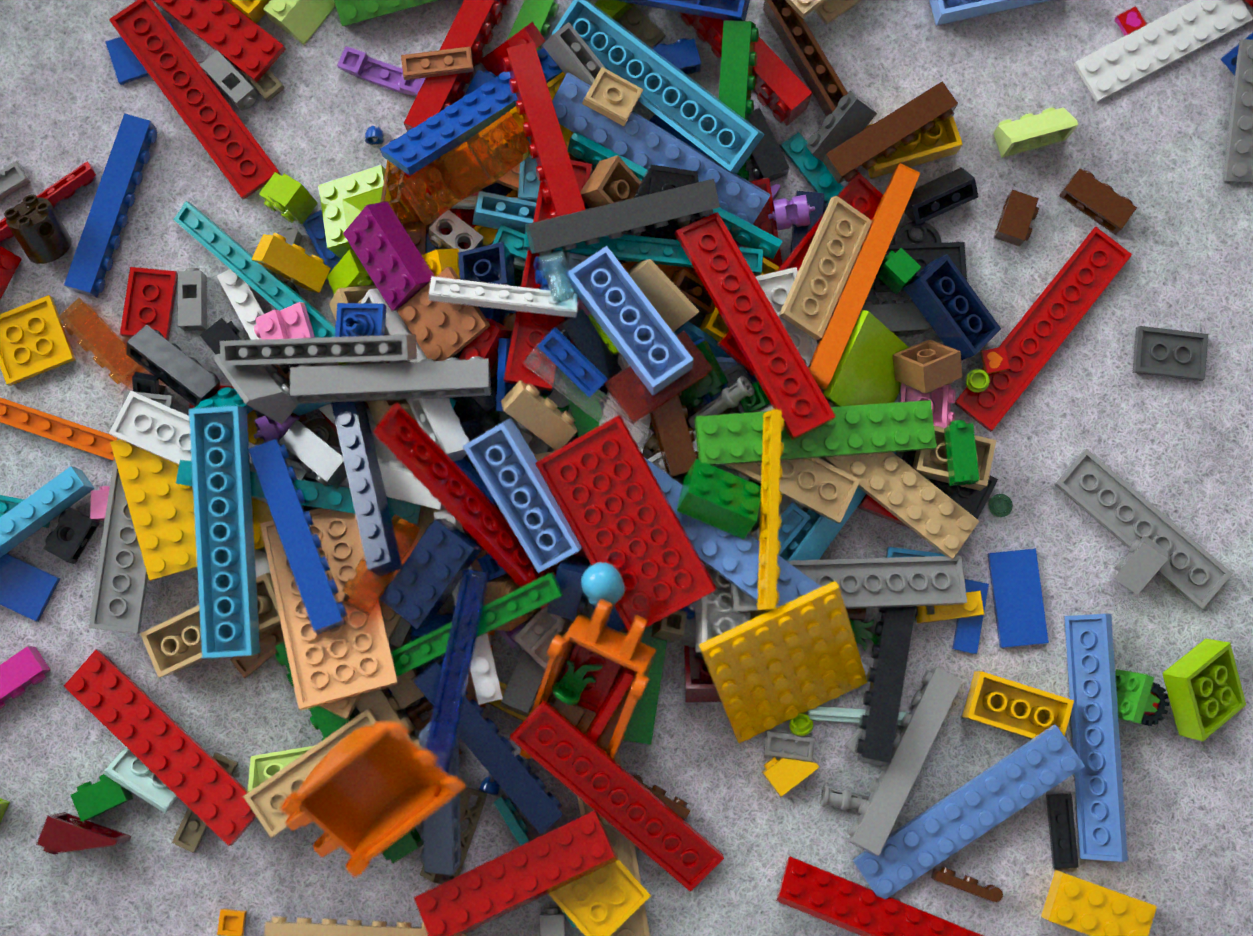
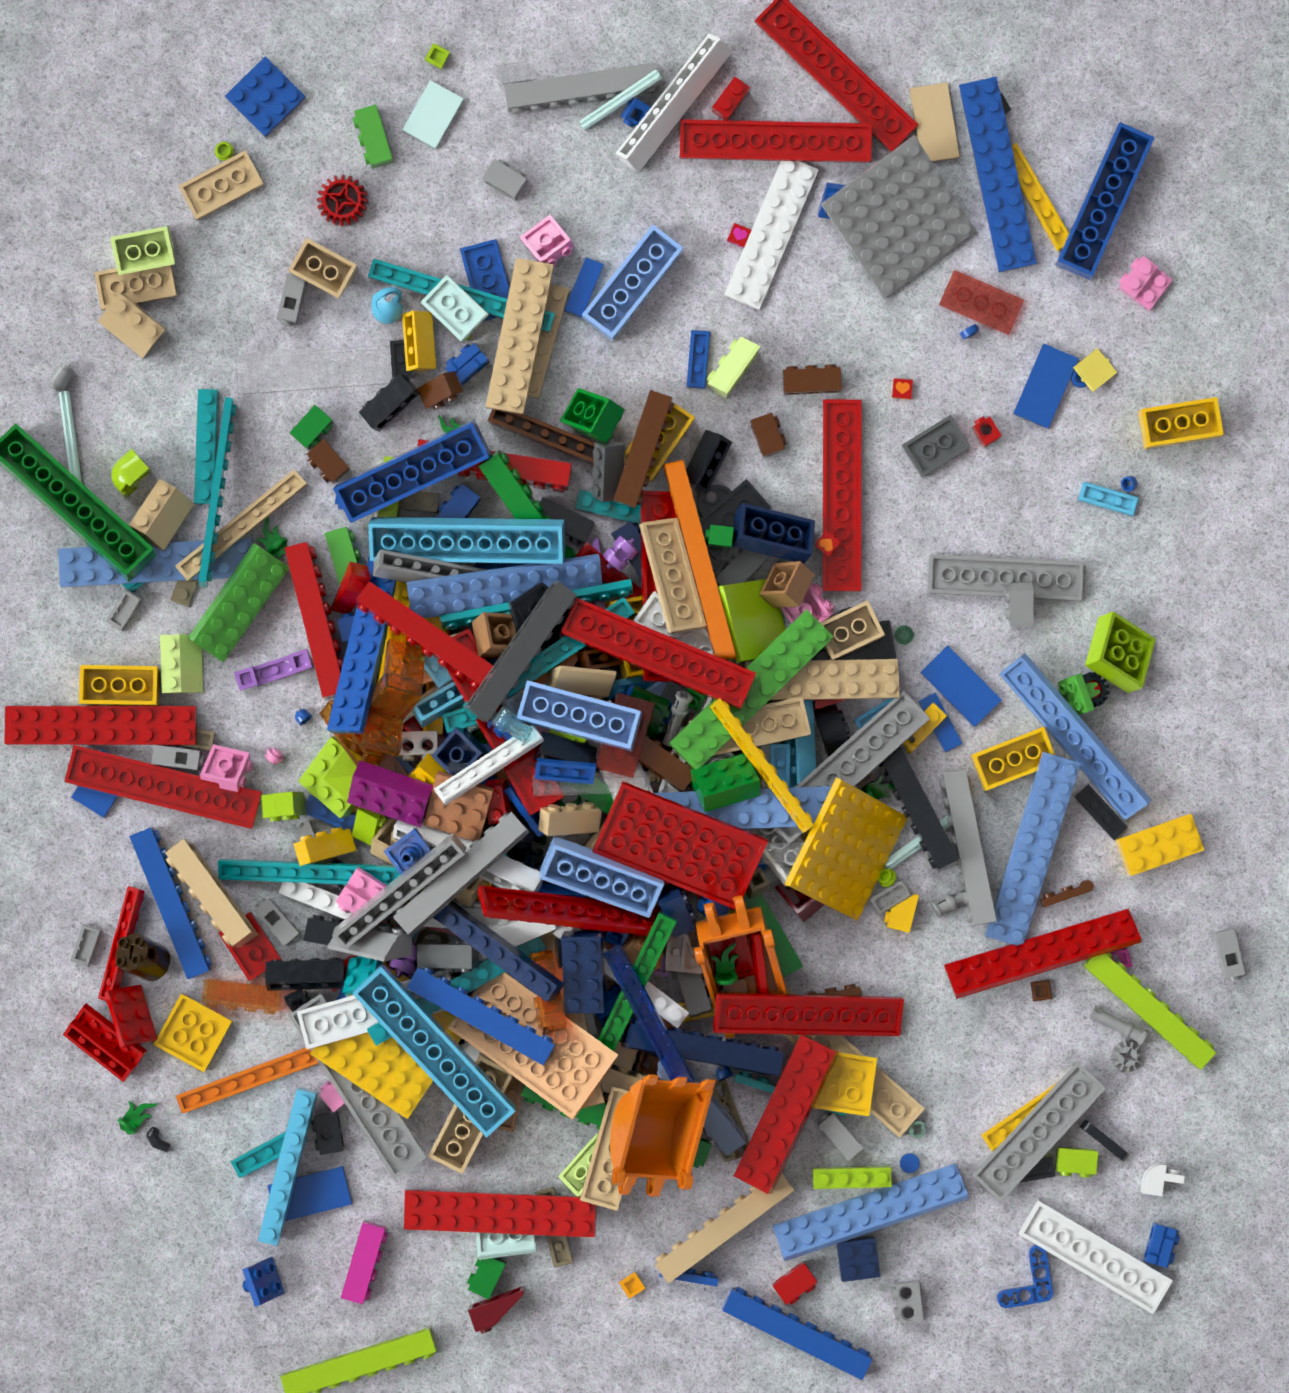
camera: 35 degrees left, 5 degrees up
(151, 223) = (211, 893): none -> tan brick
(265, 123) = (227, 767): none -> bright pink plate
(318, 149) = (274, 755): none -> bright pink plate
(437, 63) = (312, 640): nougat tile -> none
(602, 582) = (696, 893): medium azure helmet -> none
(612, 96) = (448, 575): tan tile -> none
(862, 536) = (831, 728): none -> black brick
(867, 68) = (592, 415): none -> green brick
(961, 453) = (852, 628): green brick -> none
(977, 380) = (826, 566): lime plate -> none
(1003, 102) = (698, 359): none -> blue tile
(1177, 276) = (902, 388): none -> red tile
(1224, 383) = (985, 440): none -> red brick

